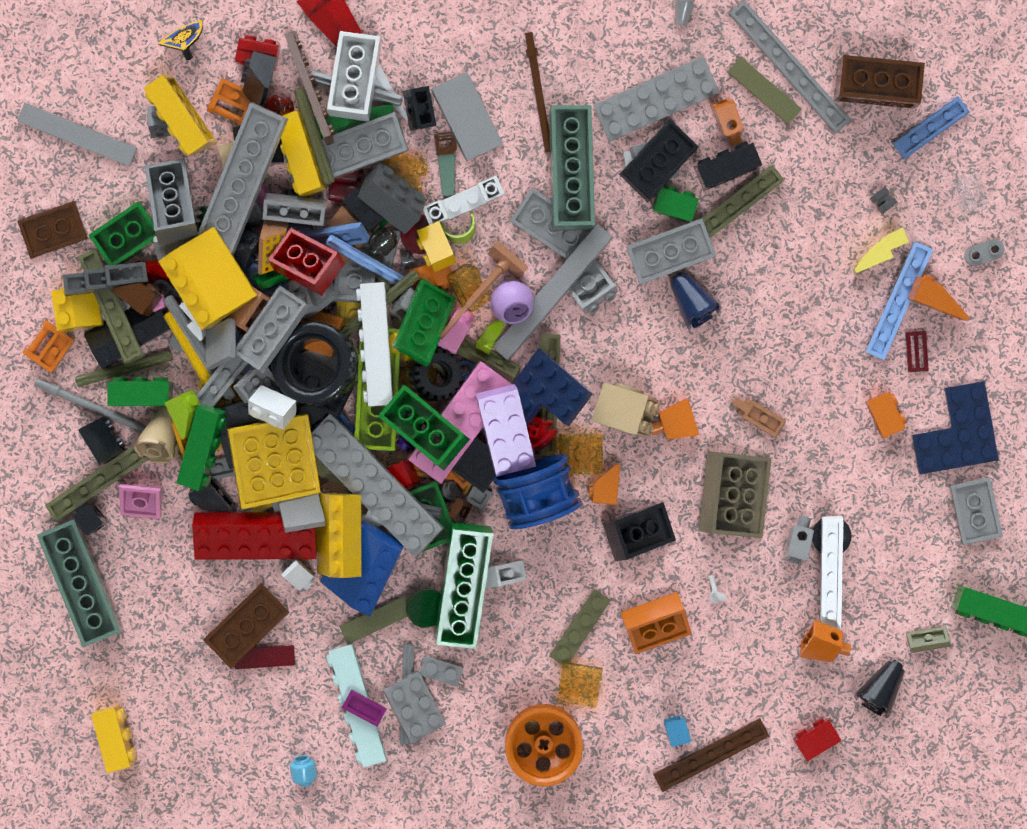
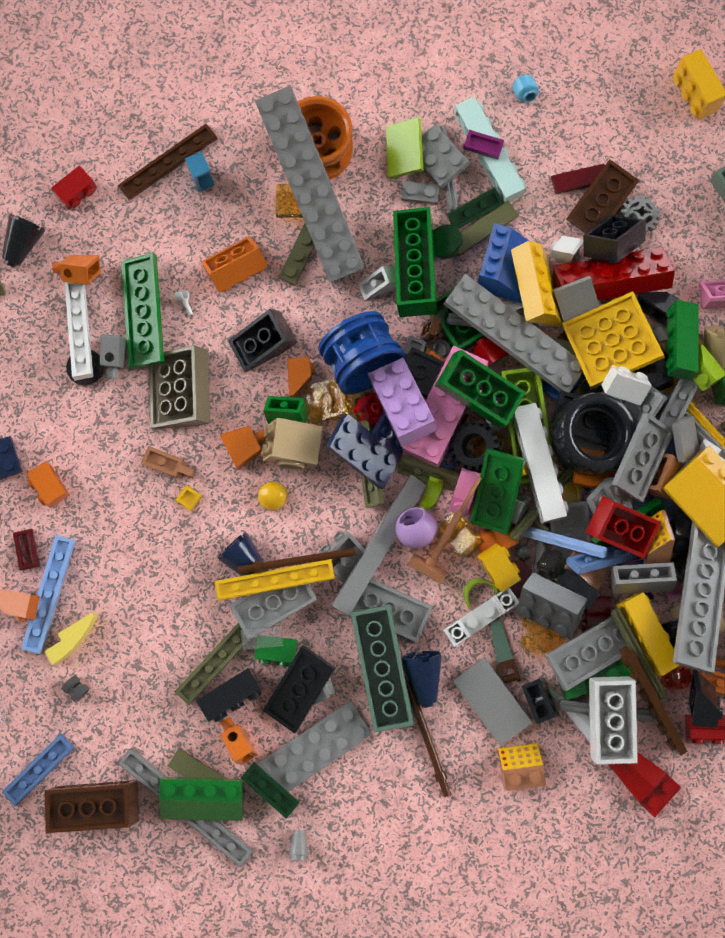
camera: 170 degrees right, 10 degrees down
(196, 599) = (645, 207): none -> light grey gear
(246, 574) = (614, 238): none -> black brick
(386, 640) = (475, 208): none -> dark green plate
(450, 48) = (521, 767): none -> slope
(450, 722) = (404, 148): none -> lime tile
(531, 153) = (424, 675): none -> dark blue cone
(561, 684) = (309, 183): none -> light grey brick
(626, 447) = (286, 408): none -> green brick
(654, 364) = (272, 495): none -> yellow hair
(665, 272) = (274, 580): none -> yellow tile
(680, 288) = (258, 566): none -> reddish brown bar
(688, 217) = (261, 637): none -> clear tile
(702, 67) = (270, 790): none -> dark green plate
(741, 376) = (188, 498): none -> yellow tile
(761, 585) = (142, 311): none -> green plate
(771, 71) = (201, 798): none -> green slope

